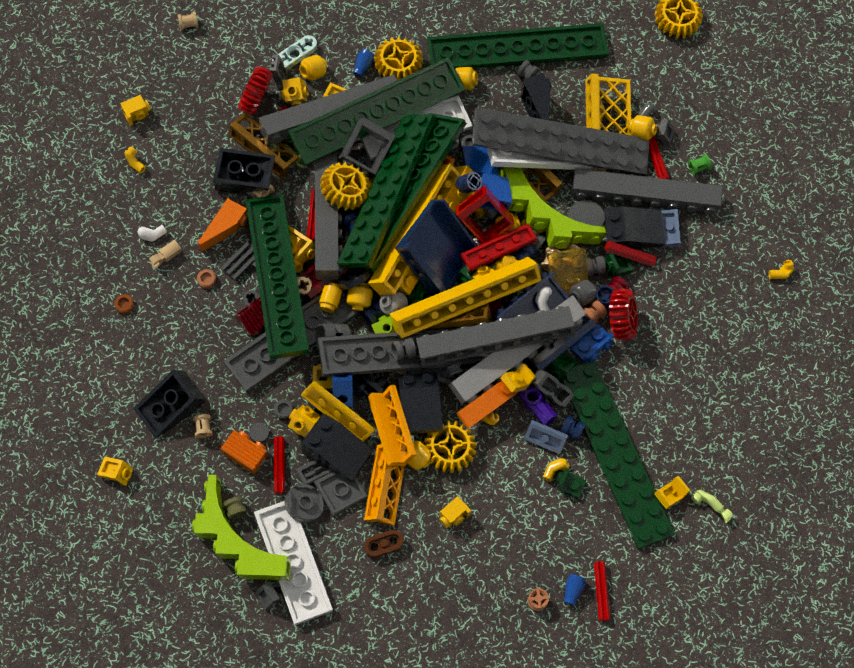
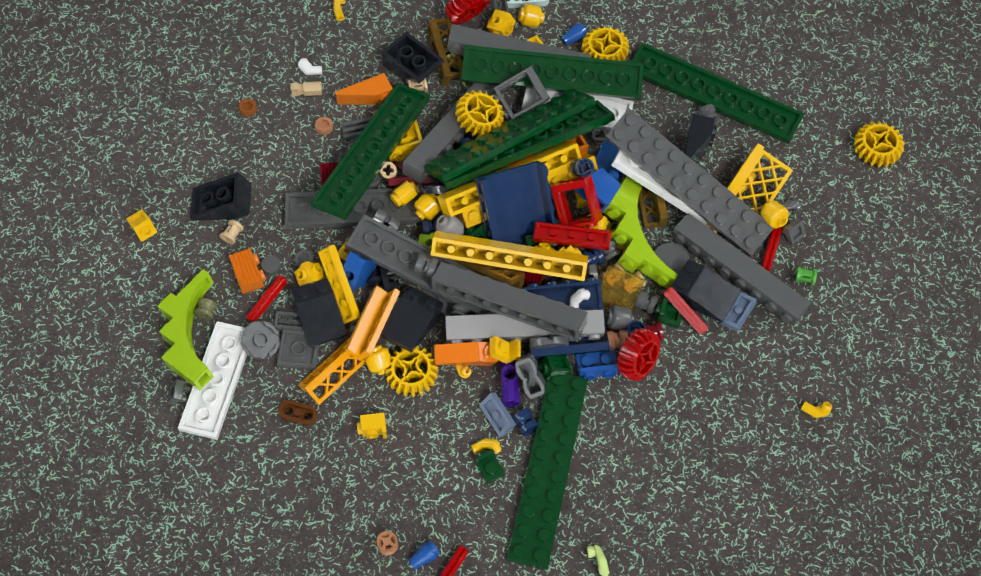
camera: 40 degrees right, 5 degrees down
(468, 77) = (651, 91): yellow head -> none
(672, 492) = (571, 532): yellow bracket -> none

